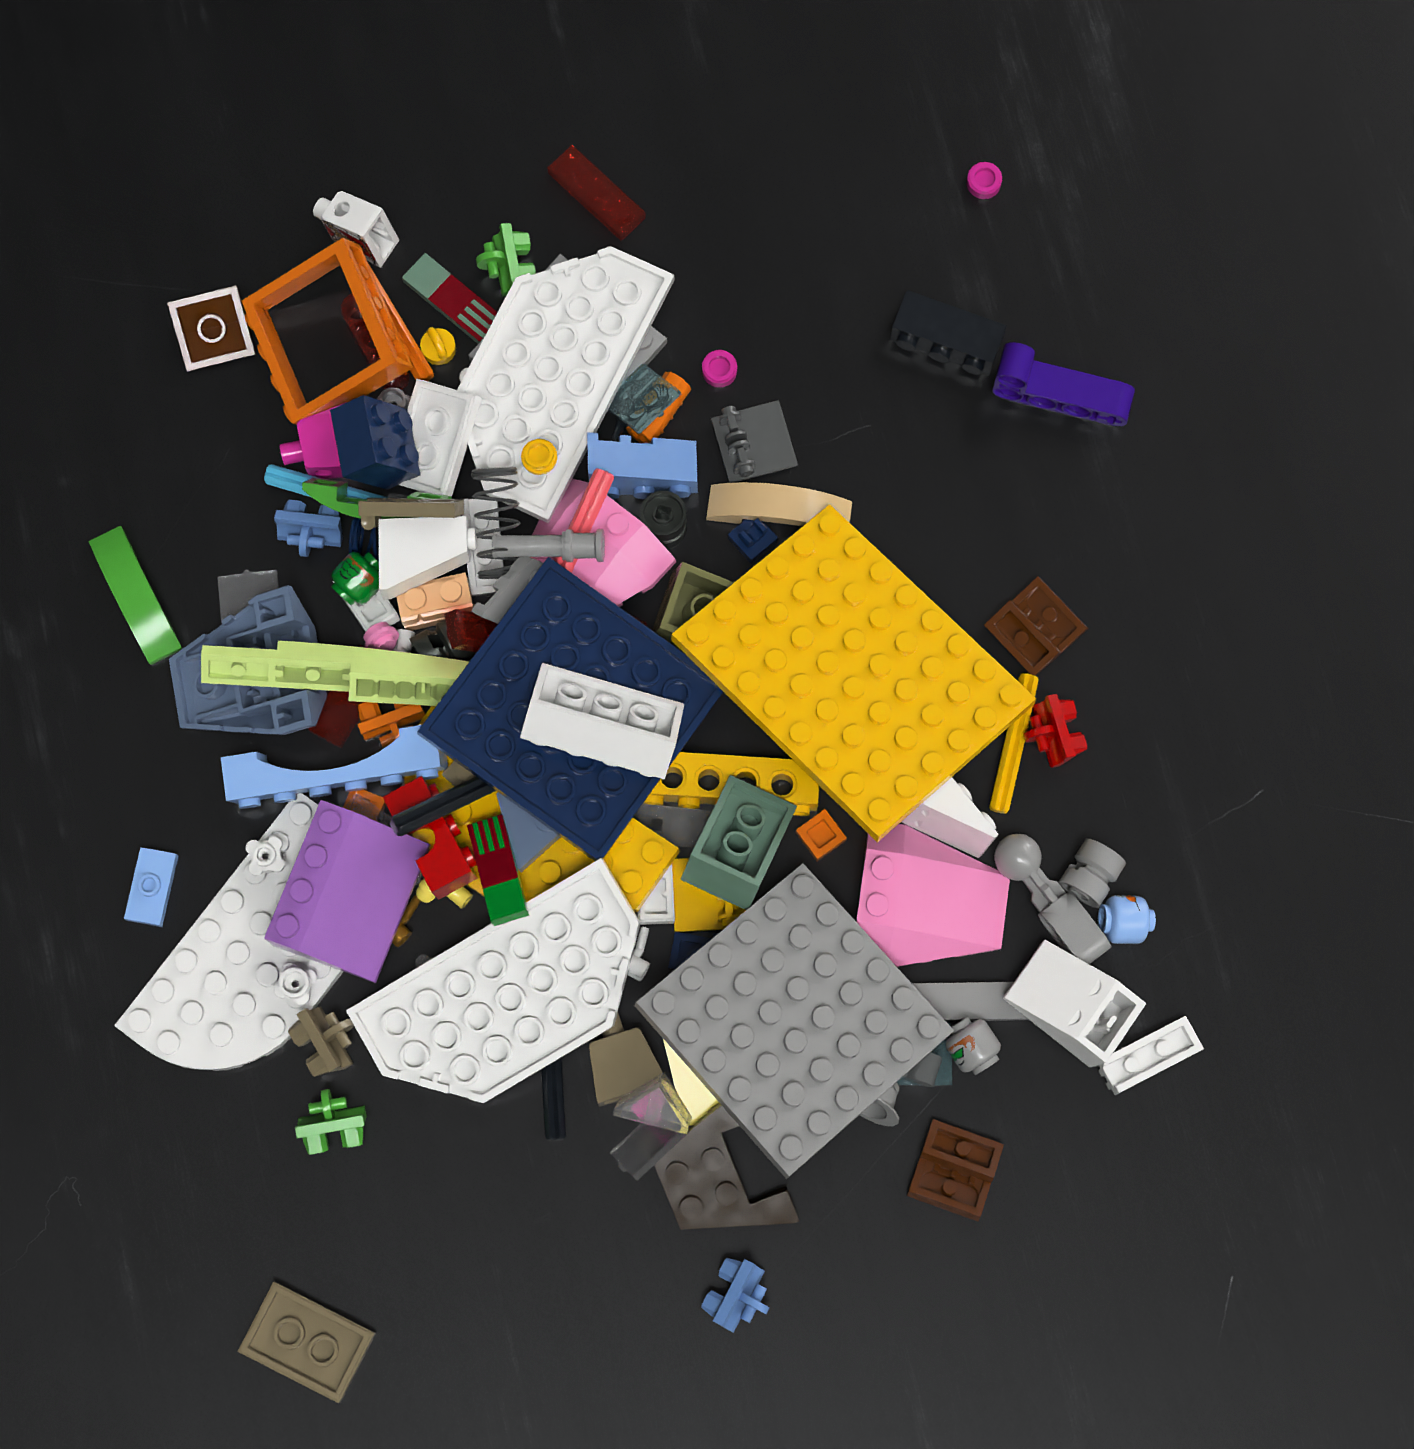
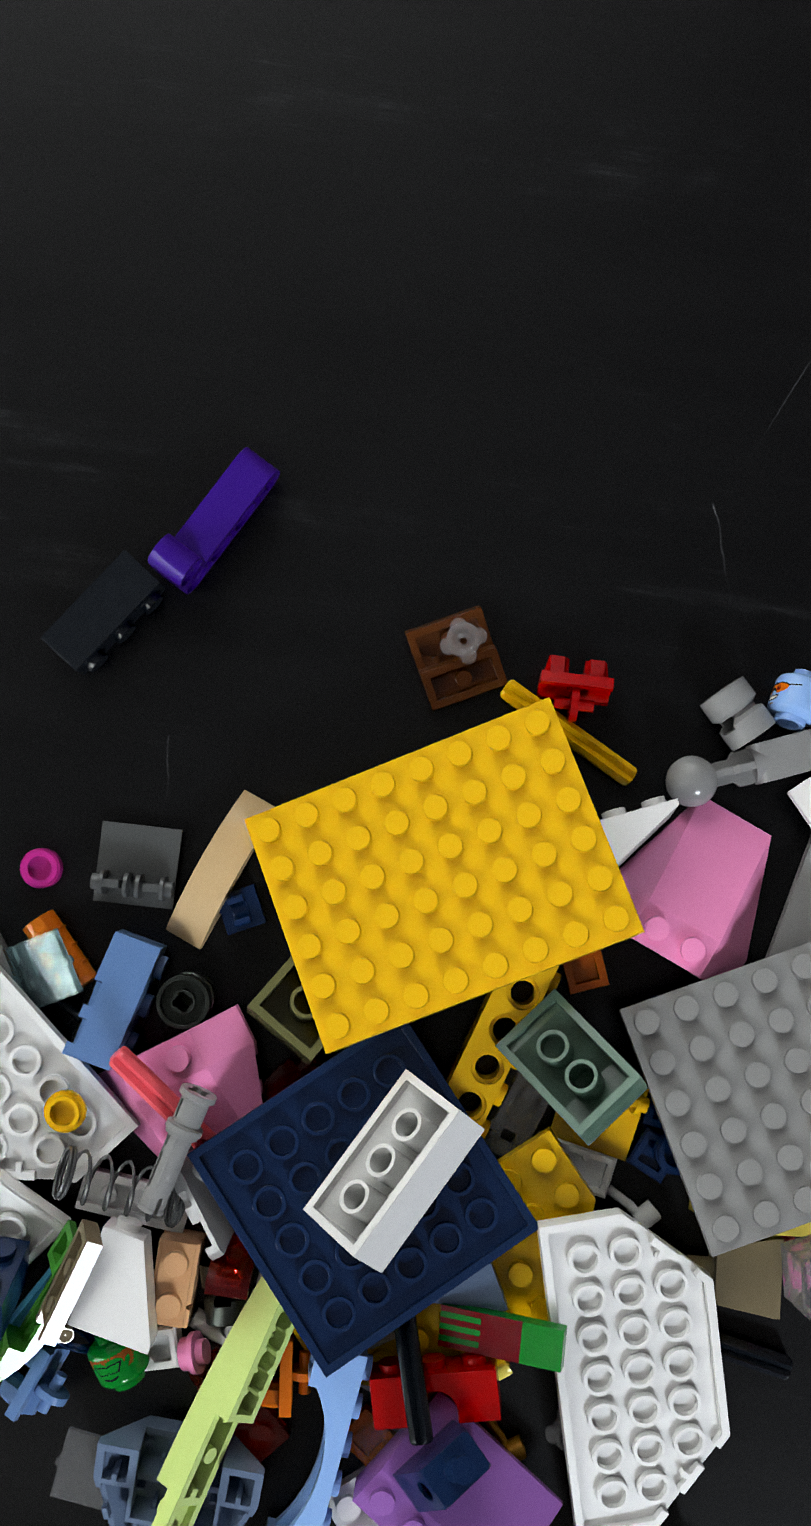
camera: 70 degrees left, 10 degrees up
(380, 855) = (445, 1467): none -> dark blue torso
(1054, 613) = (461, 629): none -> clear plate

